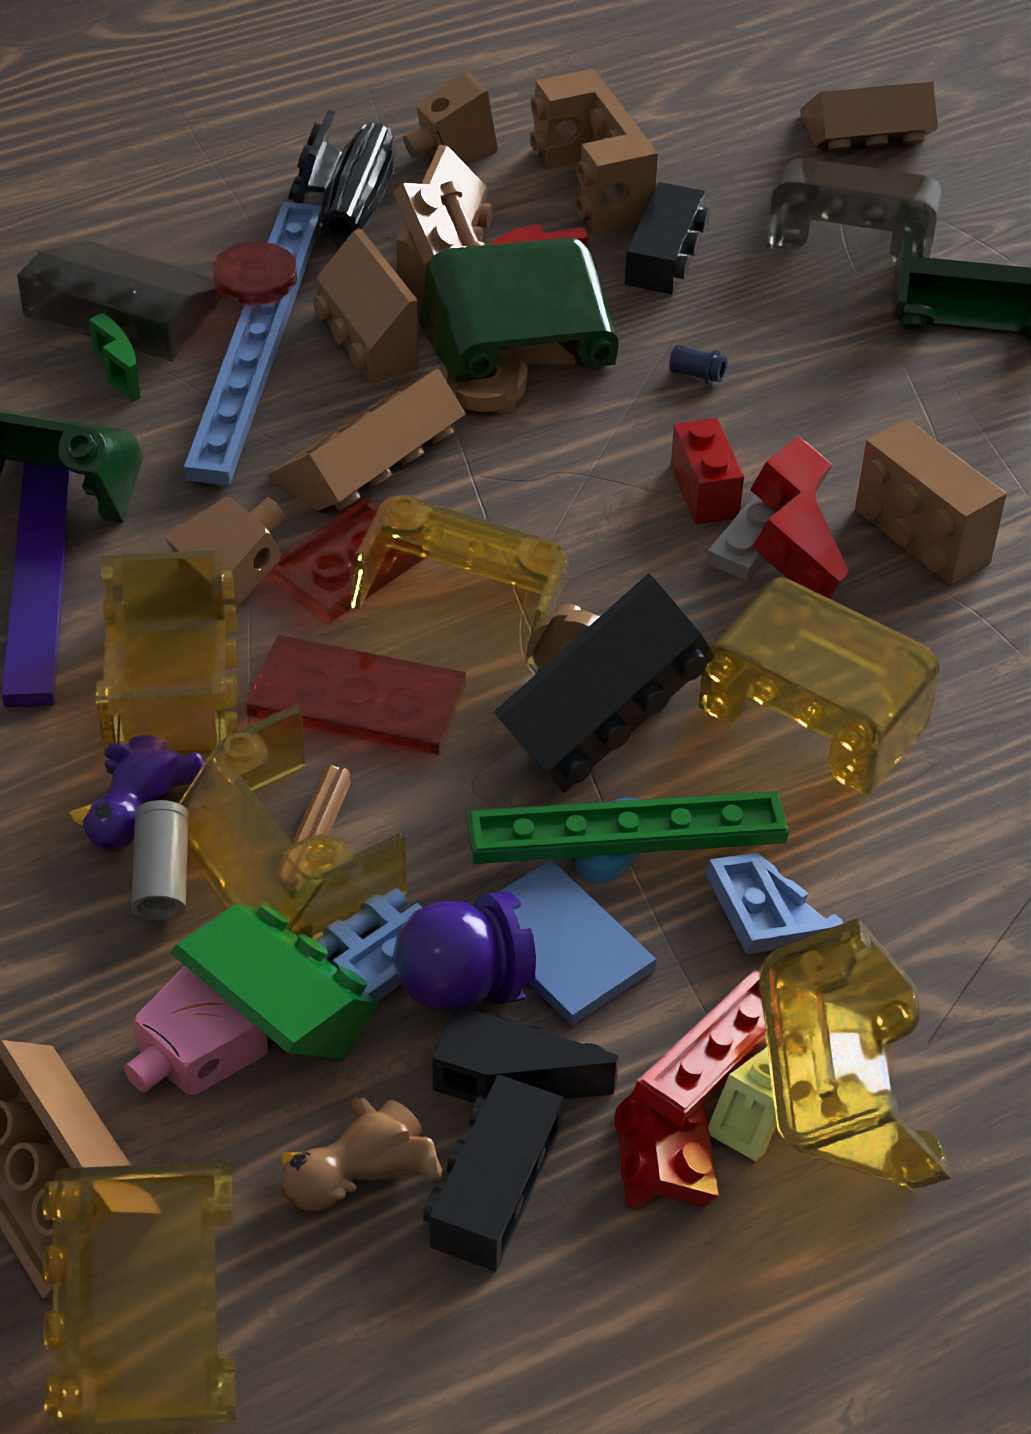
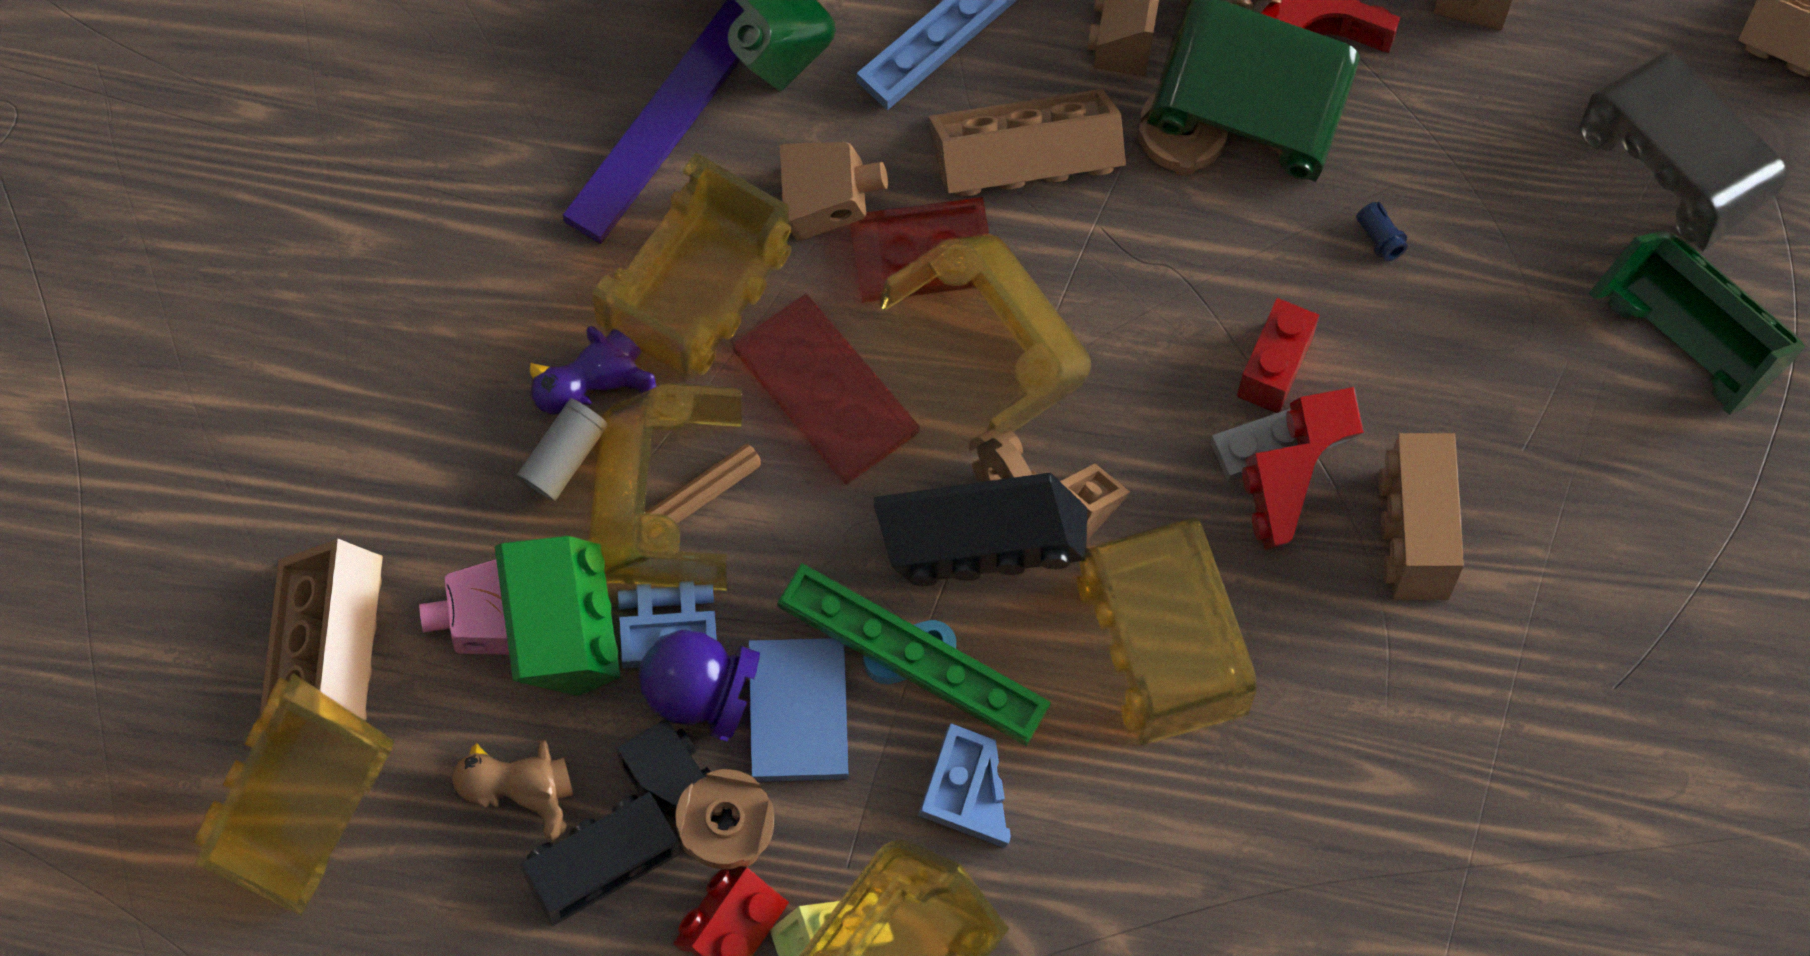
camera: 35 degrees right, 20 degrees up
(587, 1072) = (740, 843): none -> medium nougat plate
(666, 238) = (1480, 67): black brick -> none
(706, 1055) = (799, 878): tile -> none

